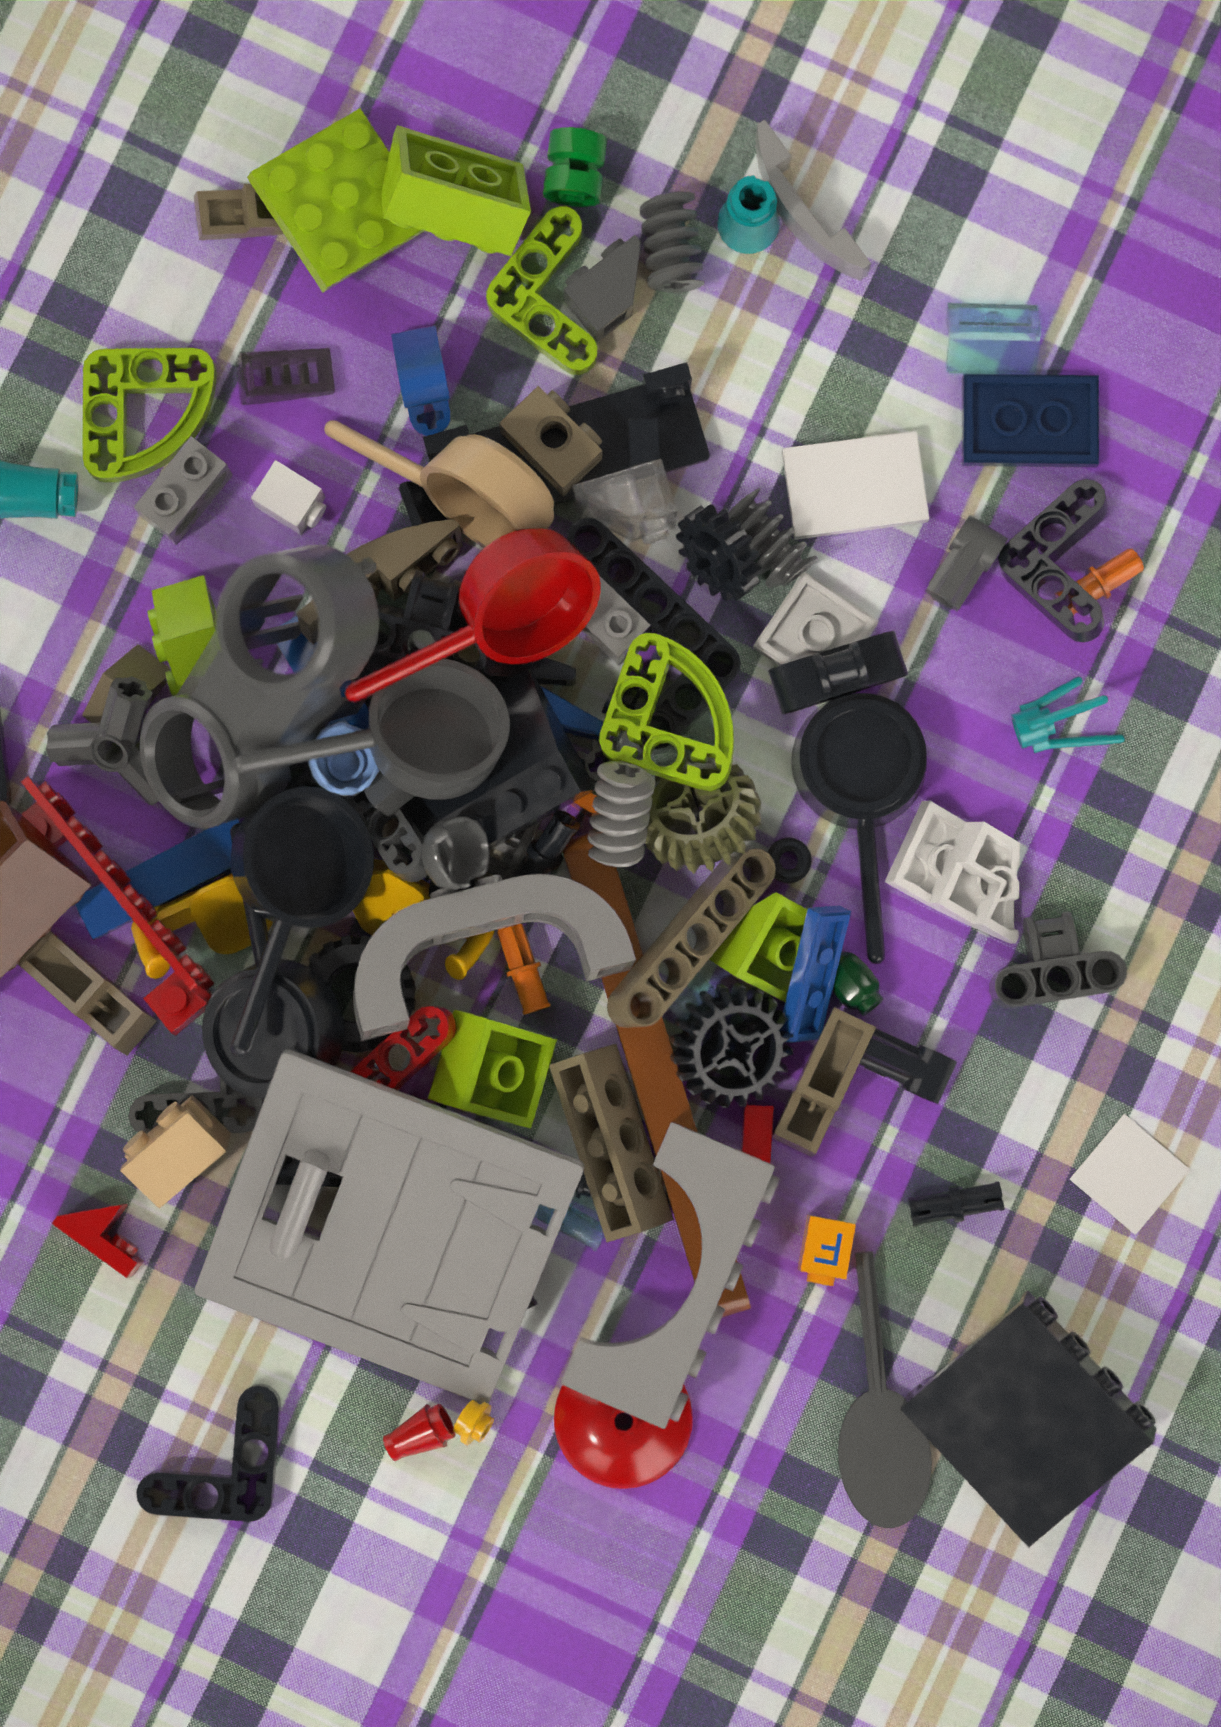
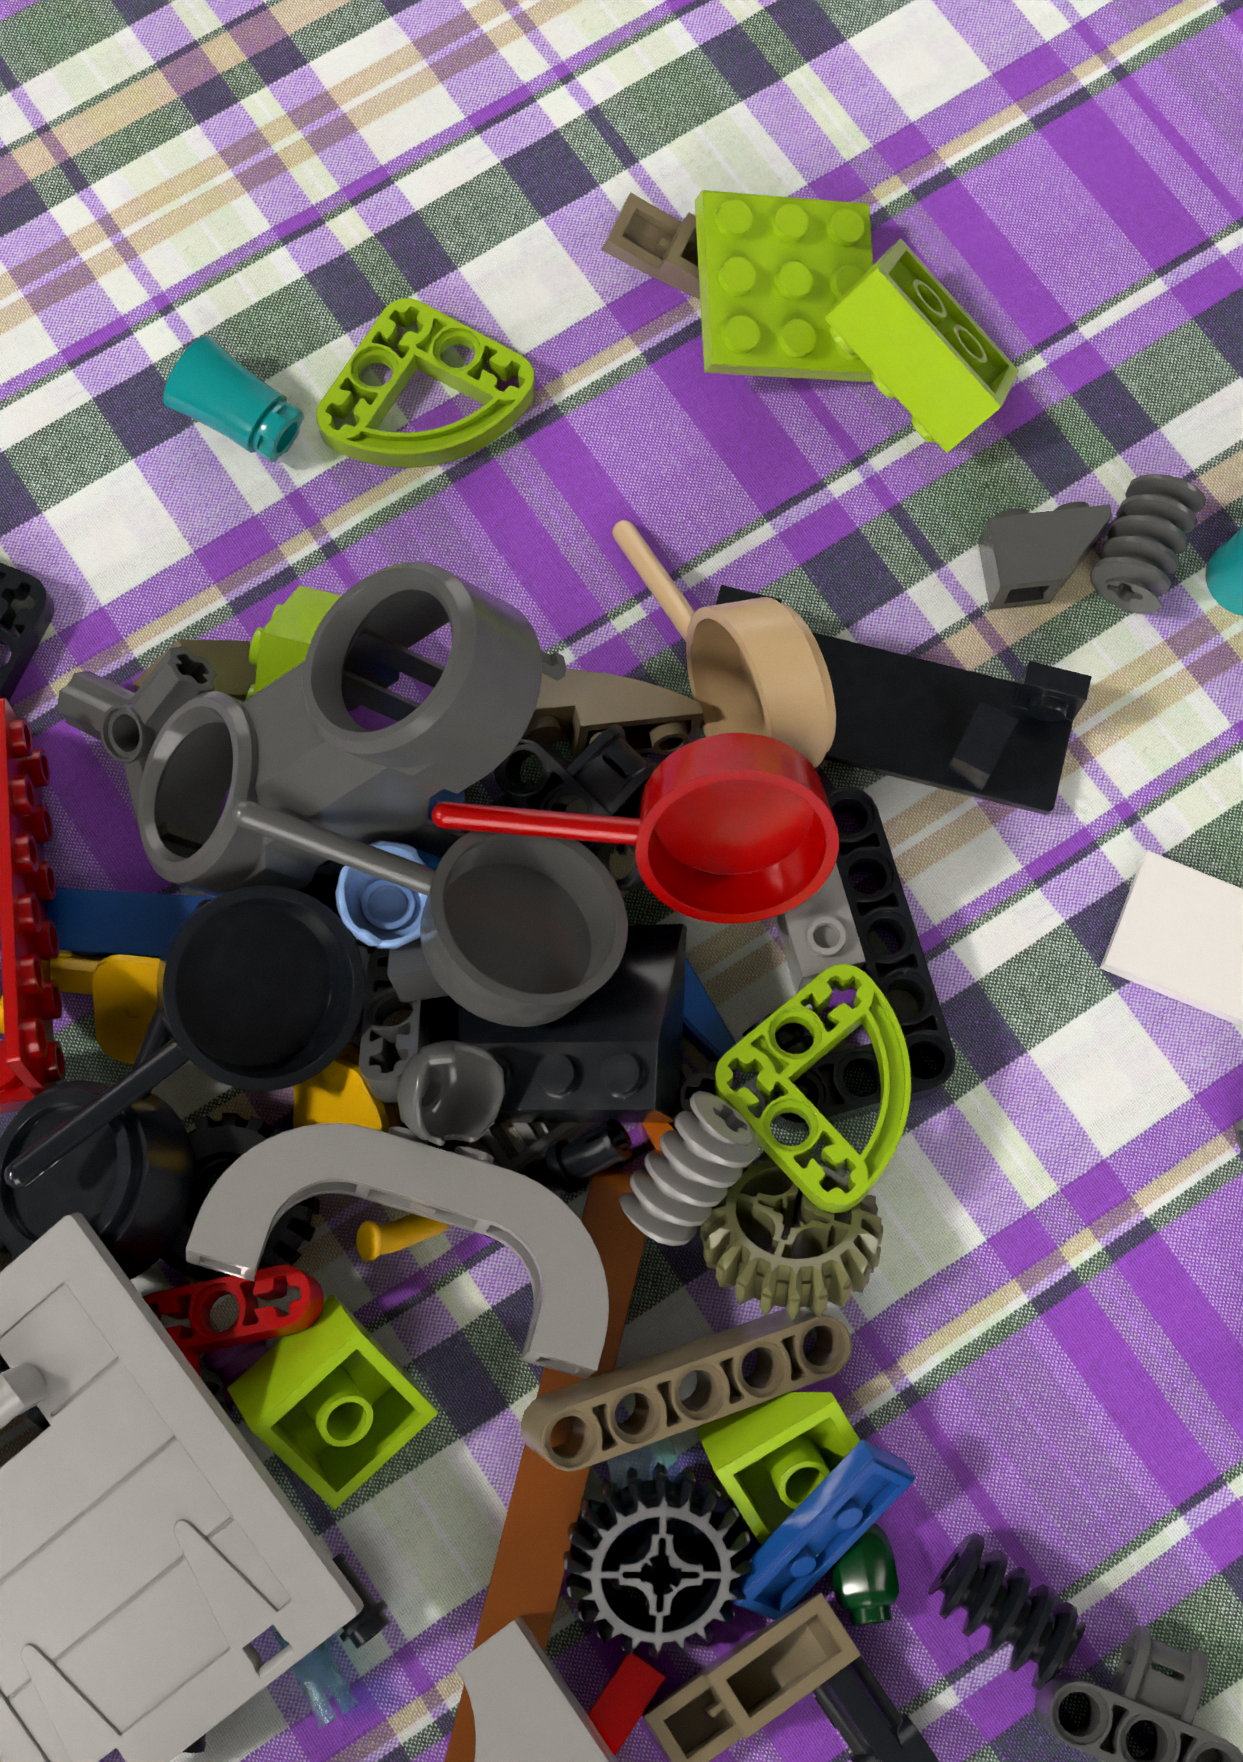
camera: 35 degrees right, 10 degrees down
(183, 490) = (409, 498): light grey brick -> none
(286, 391) = (598, 462): clear smoke slope -> none
(289, 498) = (525, 572): white brick -> none
(418, 504) = (670, 662): black slope -> none
(422, 378) = (759, 521): blue piece -> none
(523, 969) = (455, 1296): orange axle -> none
(531, 304) = (938, 519): lime beam -> none
(545, 670) = (703, 943): black slope -> none
(559, 465) = (871, 715): dark tan brick -> none
(574, 173) = (1079, 398): green wheel -> none
(611, 1142) = (424, 1598): dark tan brick -> none
(630, 502) = (926, 800): clear slope -> none
(718, 552) = (1001, 924): black gear -> none
(772, 545) = (1065, 946): dark grey piece -> none
(802, 854) = (891, 1361): black plate -> none
(812, 622) = (1063, 1097): white tile -> none
(838, 672) = (1069, 1158): black piece -> none
(860, 768) = (1031, 1299): black piece -> none
(945, 953) = (1008, 1609): none -> black piece
(960, 870) = (1087, 1509): white slope -> none

